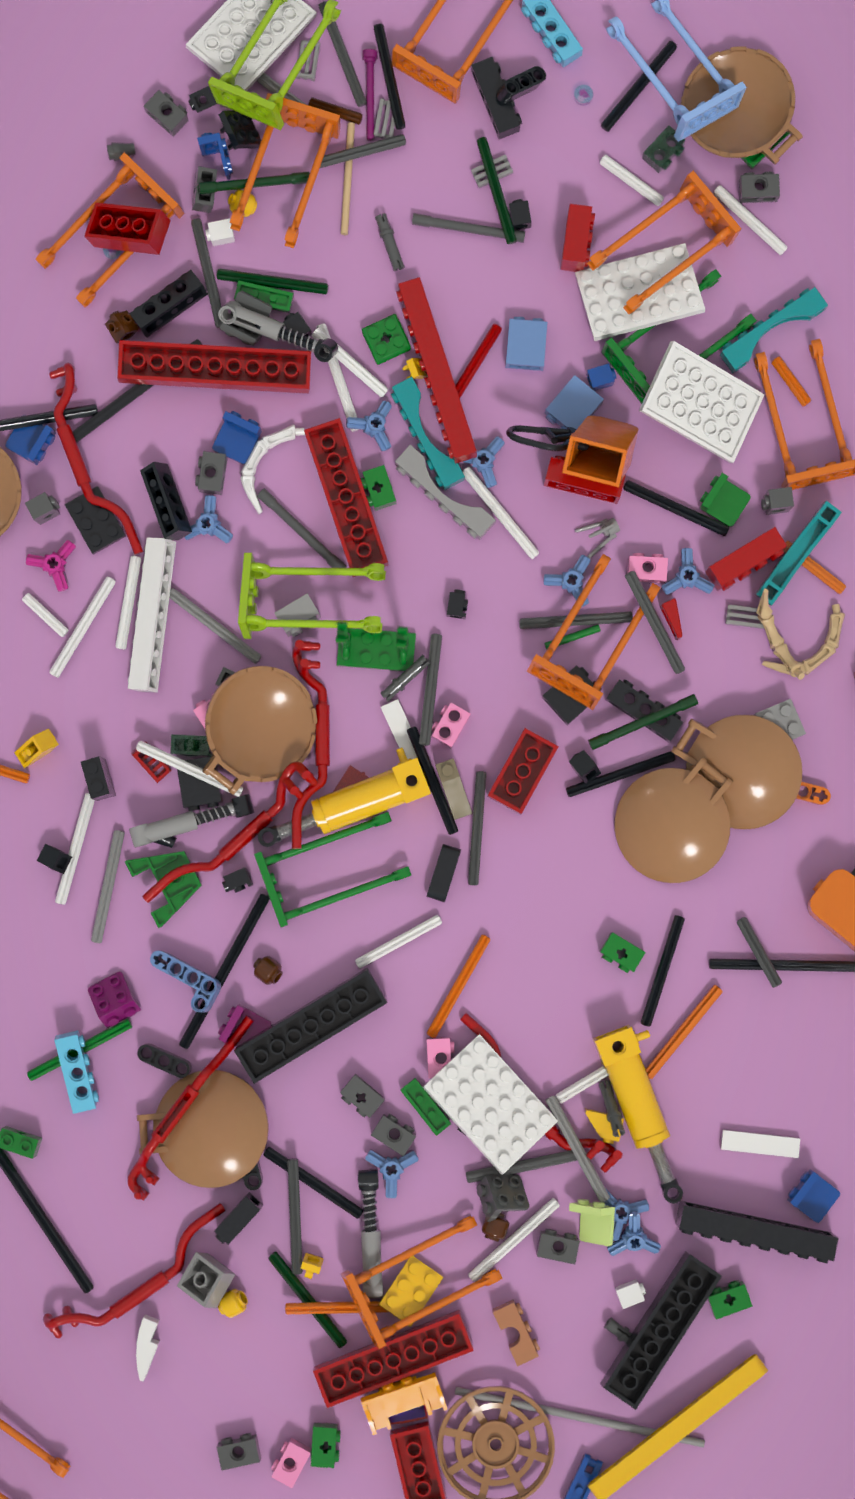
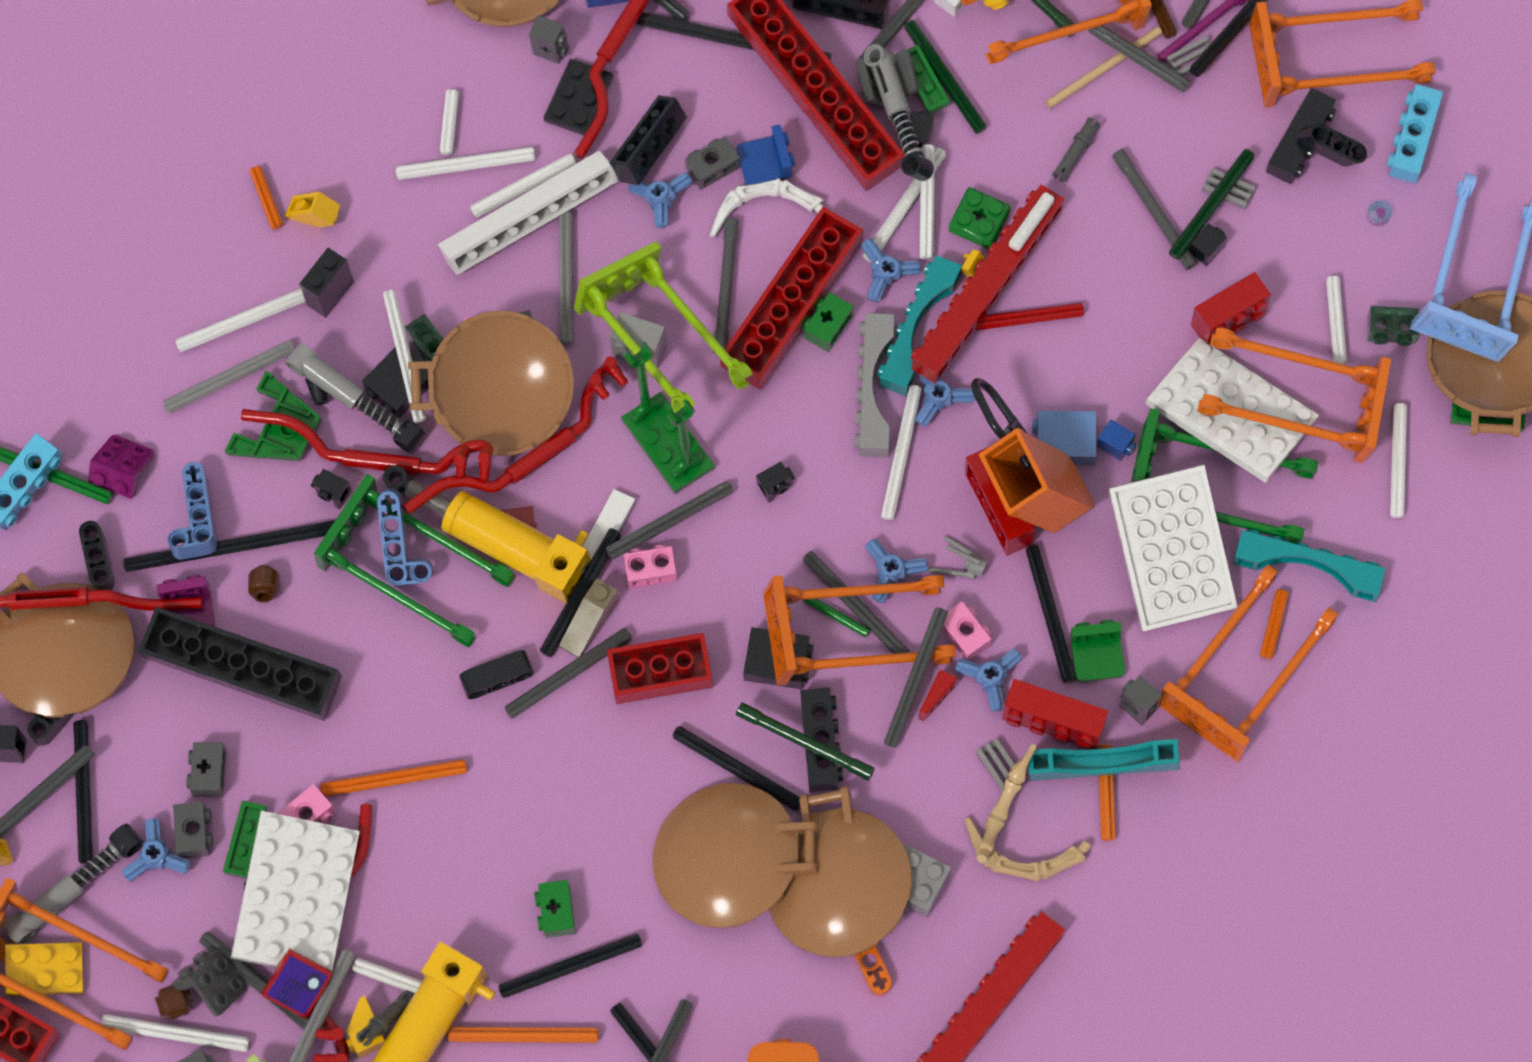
camera: 50 degrees right, 15 degrees down
(54, 858) = (216, 305): black brick -> none
(59, 557) = (513, 92): dark pink bush -> none
(161, 775) = (379, 303): red slope -> none
(307, 866) = (398, 536): none -> medium blue beam
(398, 684) = (651, 487): dark grey pin -> none
(398, 941) = (393, 686): white axle -> none
(421, 310) = (1031, 221): none -> white axle
(526, 344) = (1087, 347): medium blue brick -> none
(548, 1145) = (297, 983): none -> slope
(584, 767) = (713, 724): black brick -> none
(638, 87) = (1413, 256): black axle -> none
(749, 193) = (1439, 455): dark grey brick -> none

